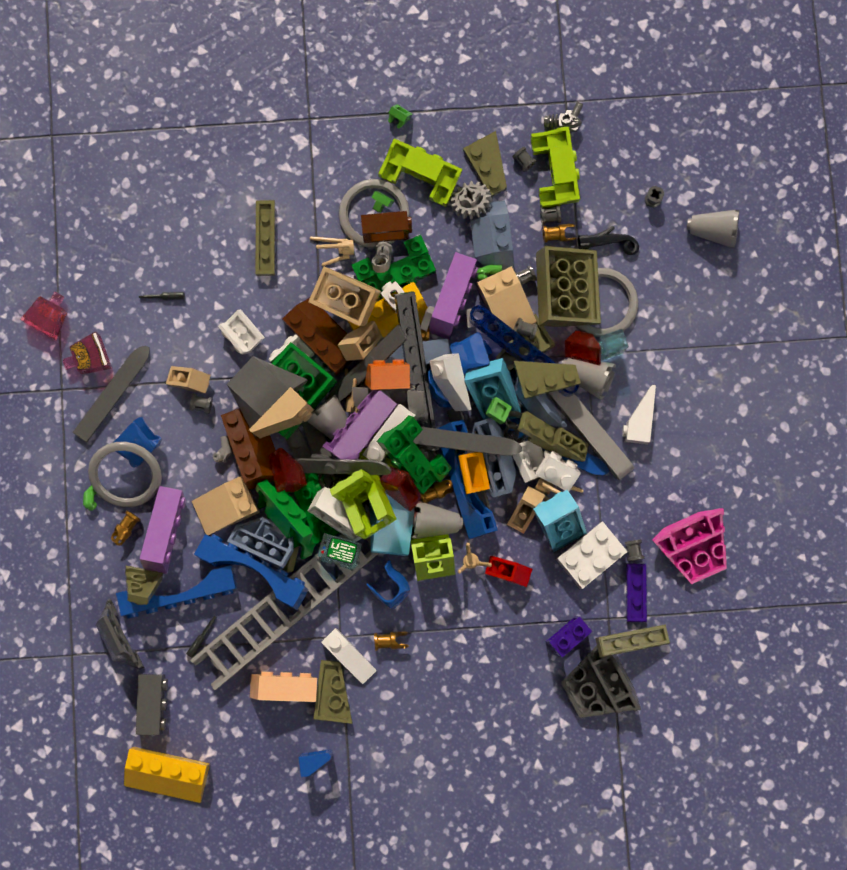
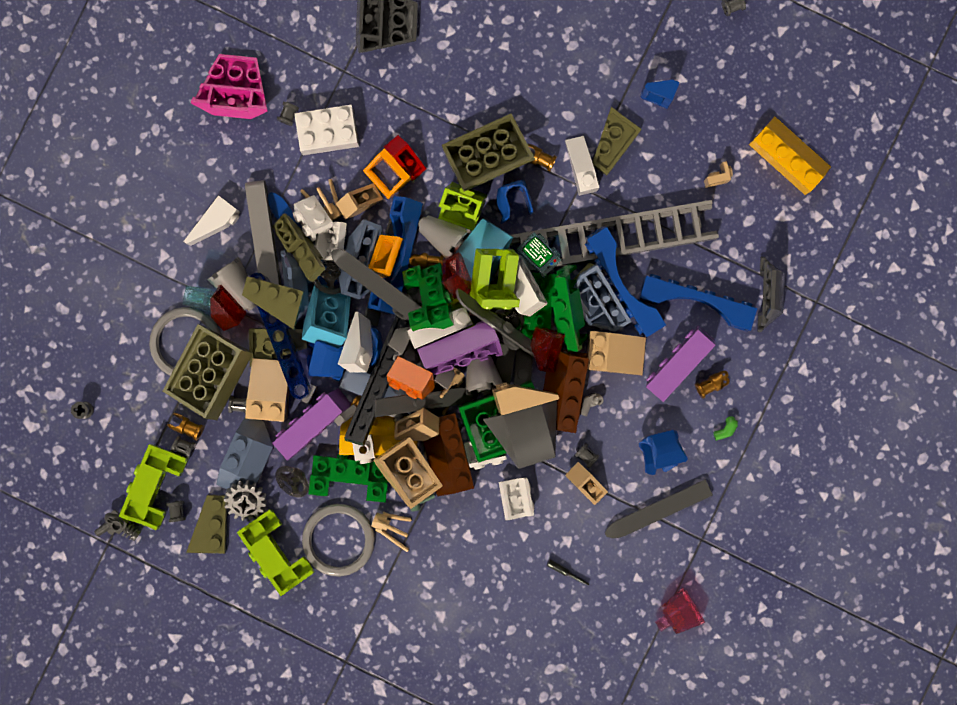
camera: 150 degrees left, 5 degrees up
(88, 355) = (662, 556): clear pink torso -> none
(131, 447) = (670, 447): light grey wedge -> none
(141, 584) = (725, 324): olive wing -> none
(151, 704) = (771, 220): dark grey brick -> none
(199, 640) = (700, 252): pearl dark grey piece -> none
(222, 713) = (716, 178): none -> tan bracket
(265, 238) = (447, 573): olive plate -> none
(283, 687) = (652, 169): light nougat wedge -> none
(381, 201) = (324, 545): bright green tile -> none
(382, 257) = (354, 493): light grey connector -> none
(386, 226) = (334, 517): reddish brown window -> none
(401, 114) = (261, 617): bright green tile -> none
(436, 614) = (487, 152): none -> olive slope
(441, 241) = (293, 479): none -> clear smoke piece
(471, 560) = (431, 184): tan plant -> none
(488, 270) = (267, 428): bright green arm -> none
(498, 410) = (332, 296): bright green tile -> none
(513, 557) = (396, 168): none -> light orange tile
(525, 328) = (266, 356): dark grey bush -> none
(560, 520) = (335, 173): medium azure slope -> none
(575, 630) = (385, 68): dark purple window -> none
(604, 238) = (148, 399): black plant -> none
(632, 640) = (335, 38): olive tile -> none
(636, 593) = (307, 78): dark purple tile -> none
(716, 227) = (44, 350): light grey cone -> none

